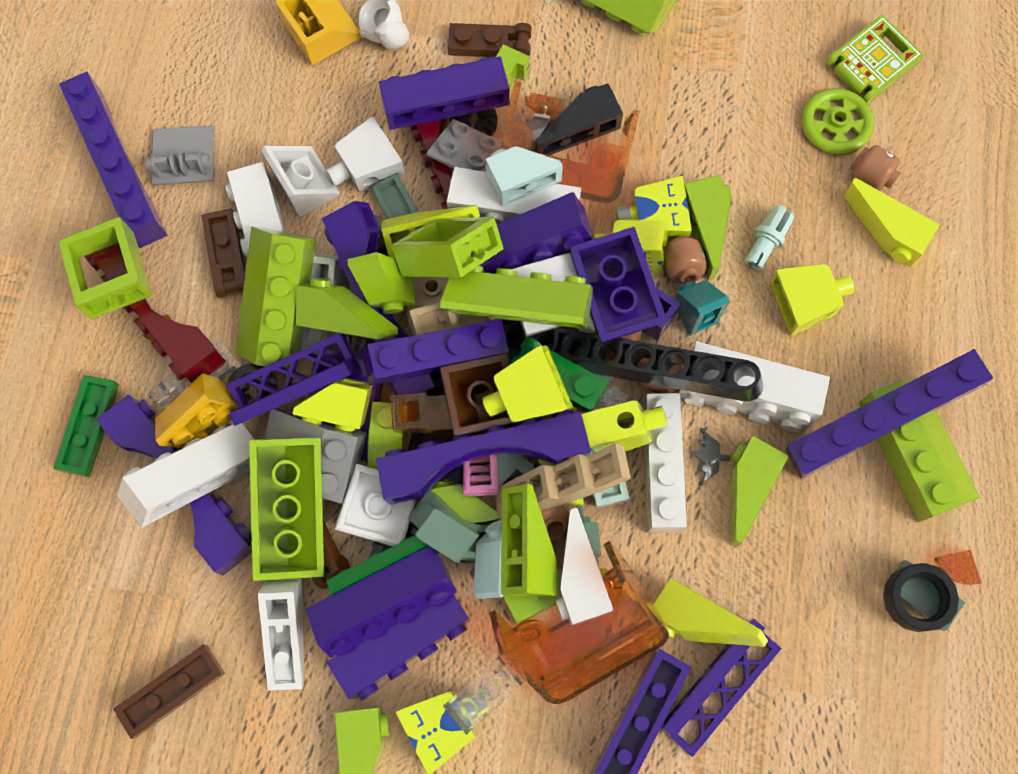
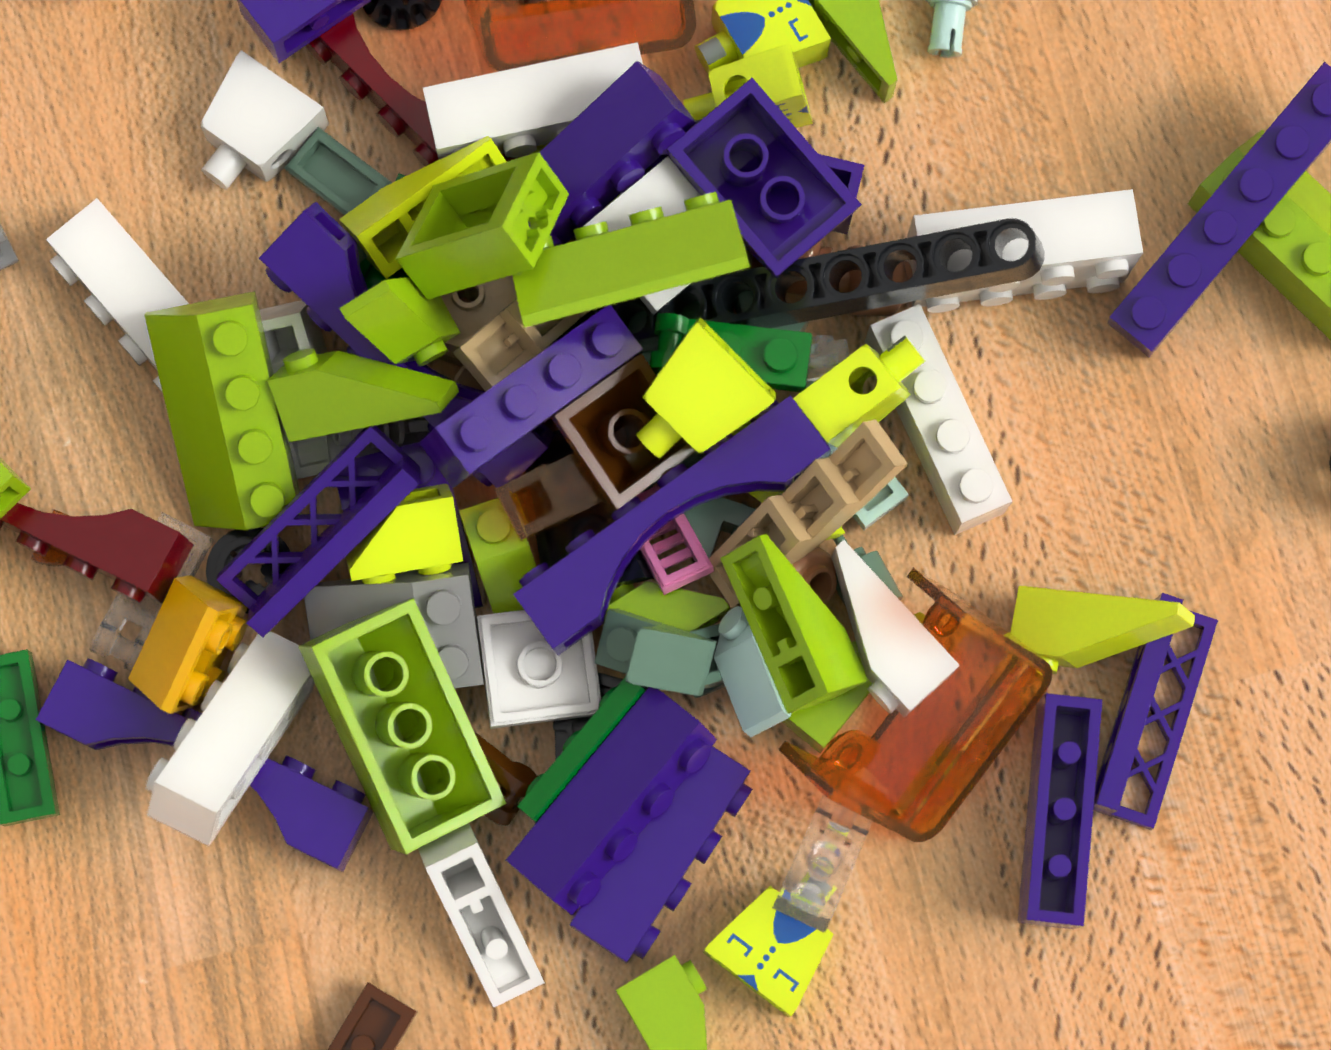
camera: 30 degrees left, 5 degrees up
(224, 251) = (98, 370): reddish brown plate -> none
(300, 176) = (163, 197): white slope -> none
(463, 147) = (417, 45): light grey hinge -> none
(521, 173) = (535, 59): light aqua slope -> none
(684, 259) = (837, 88): nougat head -> none
(700, 305) = (892, 151): teal slope -> none
(709, 456) = (999, 380): dark grey piece -> none
(751, 482) = (1077, 391): lime slope -> none
(809, 295) = (1049, 67): neon yellow torso -> none

